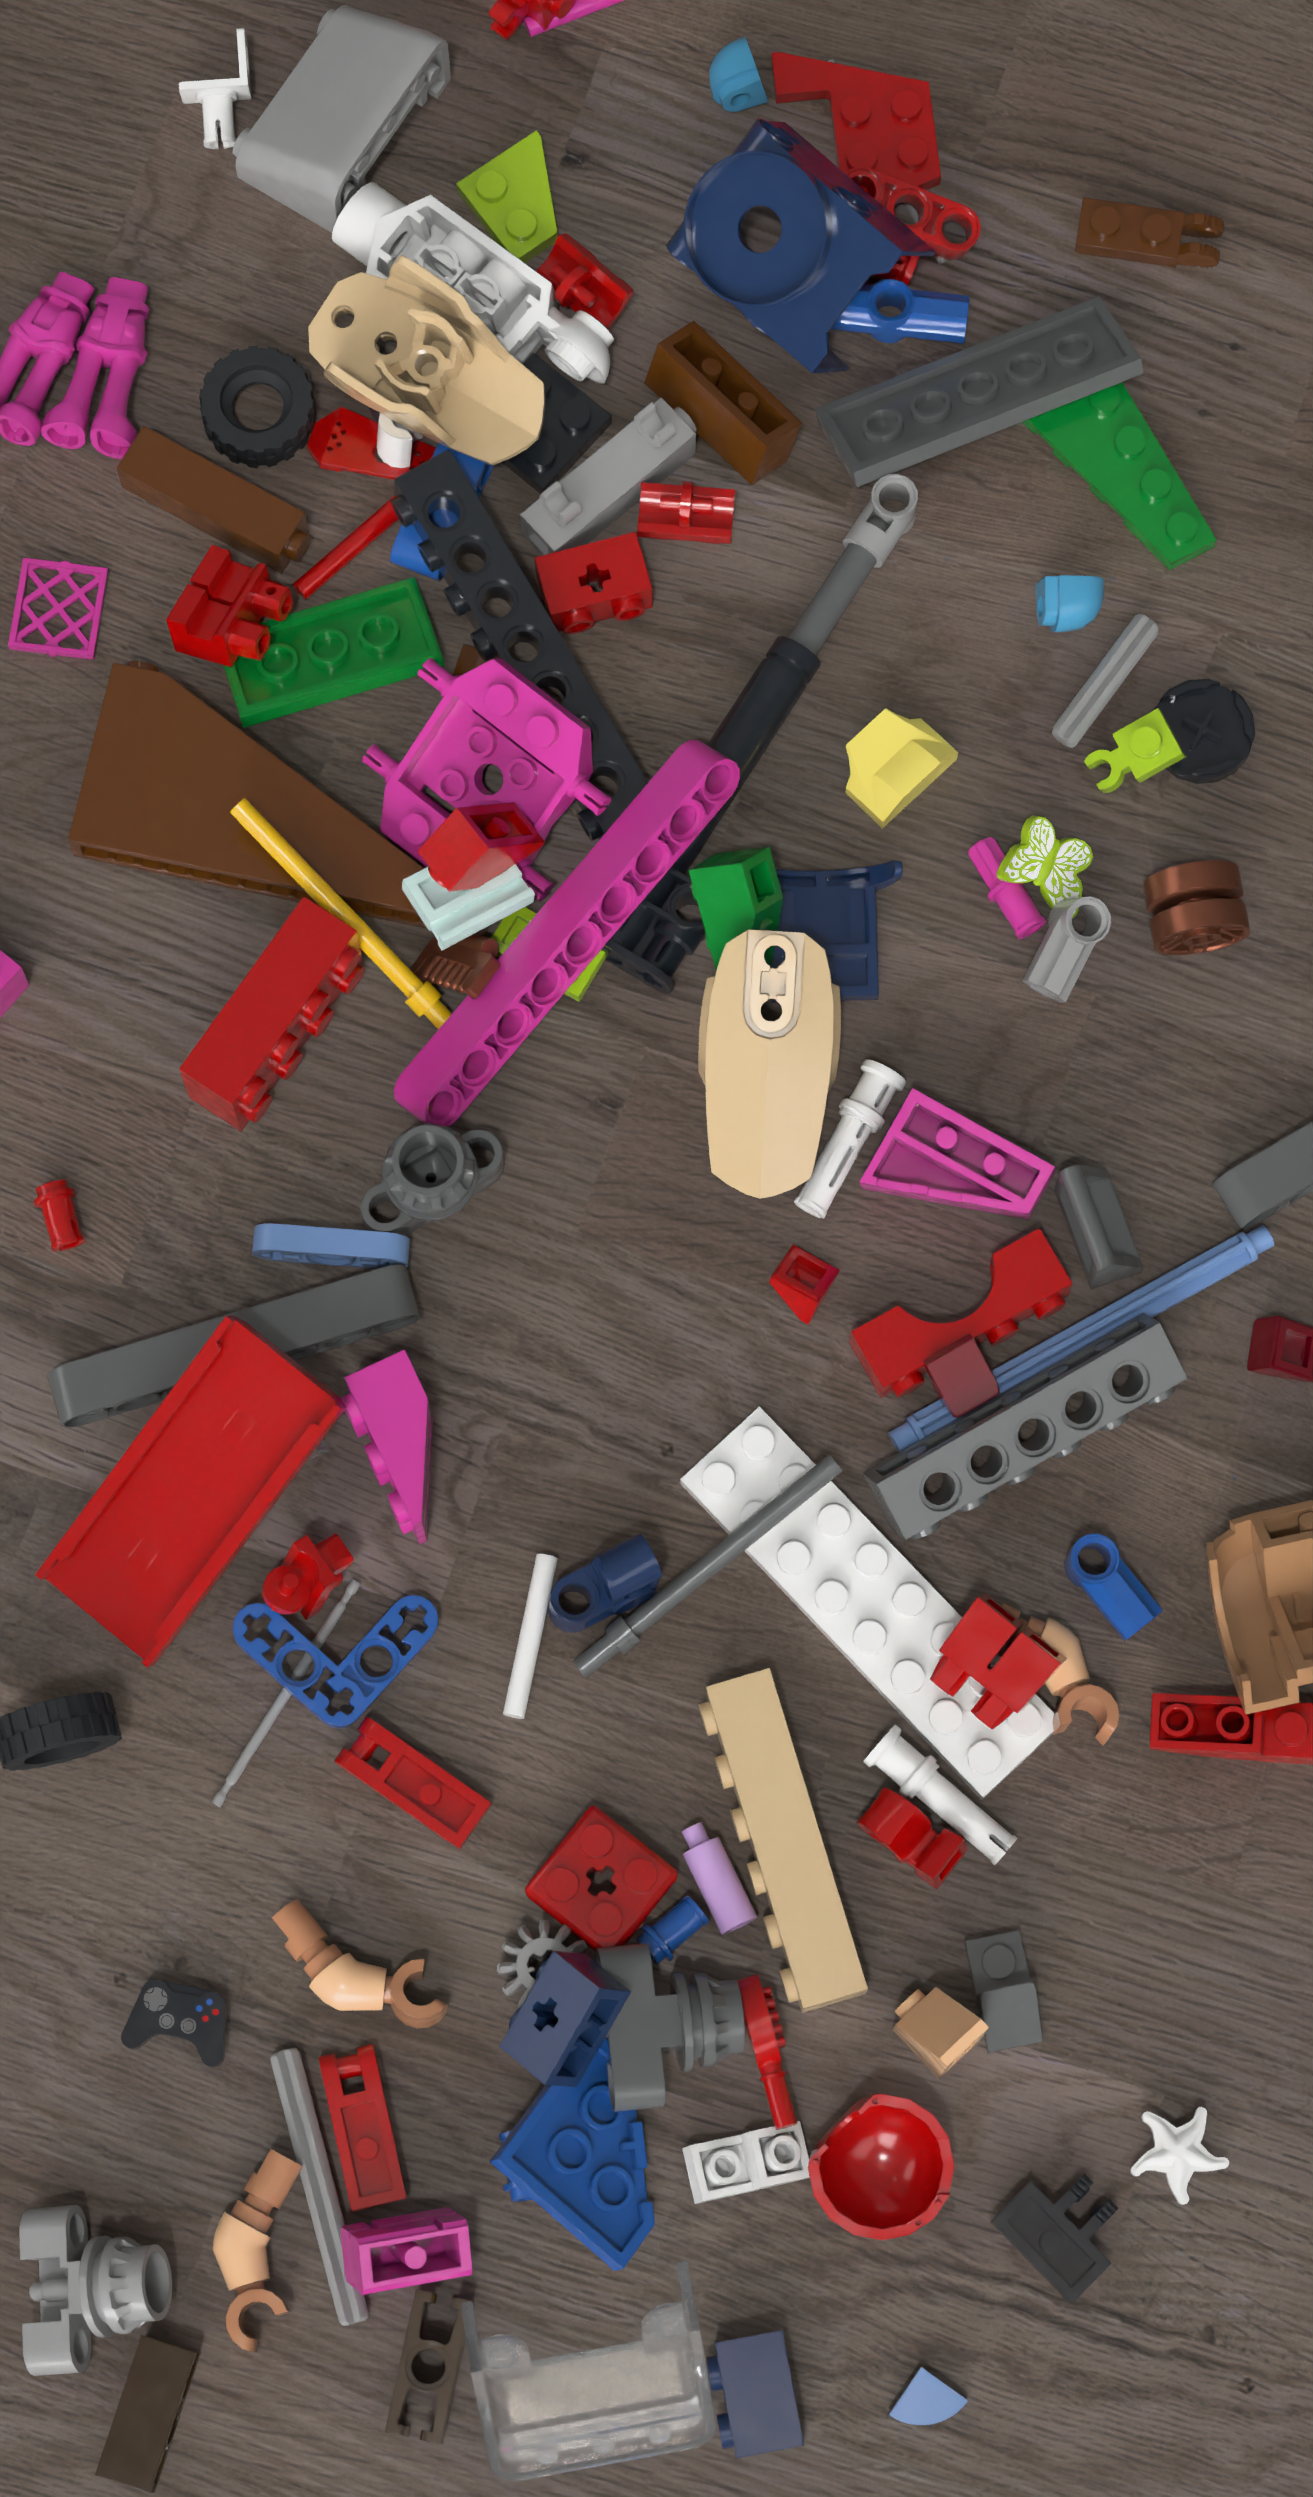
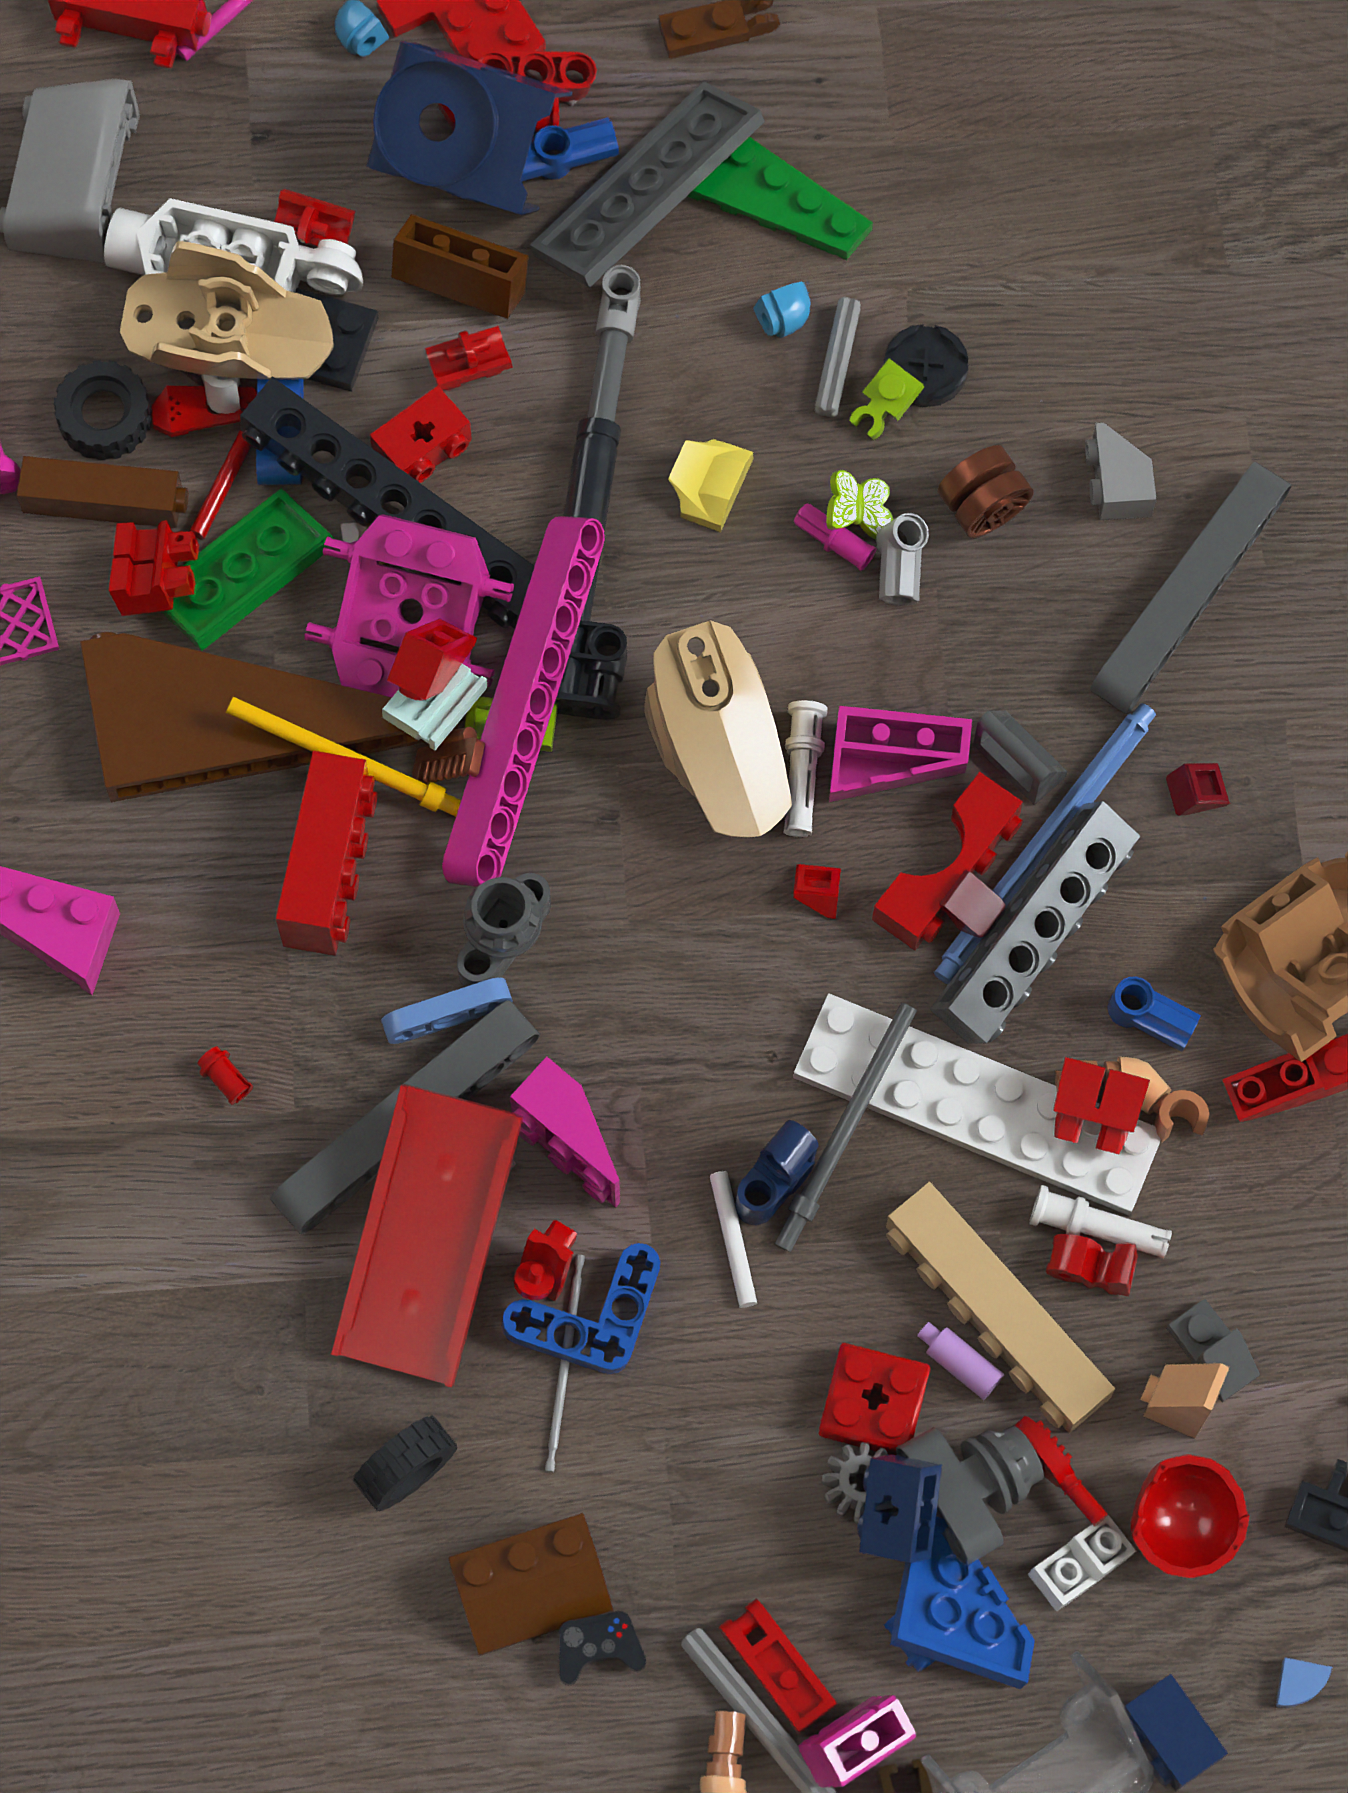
camera: 25 degrees left, 5 degrees down
(136, 1921) = (530, 1583): none -> reddish brown slope
(347, 1982) = (719, 1559): nougat piece -> none
(415, 1784) = (696, 1387): red plate -> none
(514, 199) = (229, 180): lime wing -> none
(610, 479) = (399, 357): light grey brick -> none
(672, 1929) = (945, 1409): blue pin -> none
(736, 895) = (641, 619): green slope -> none
(840, 916) = (715, 597): dark blue piece -> none

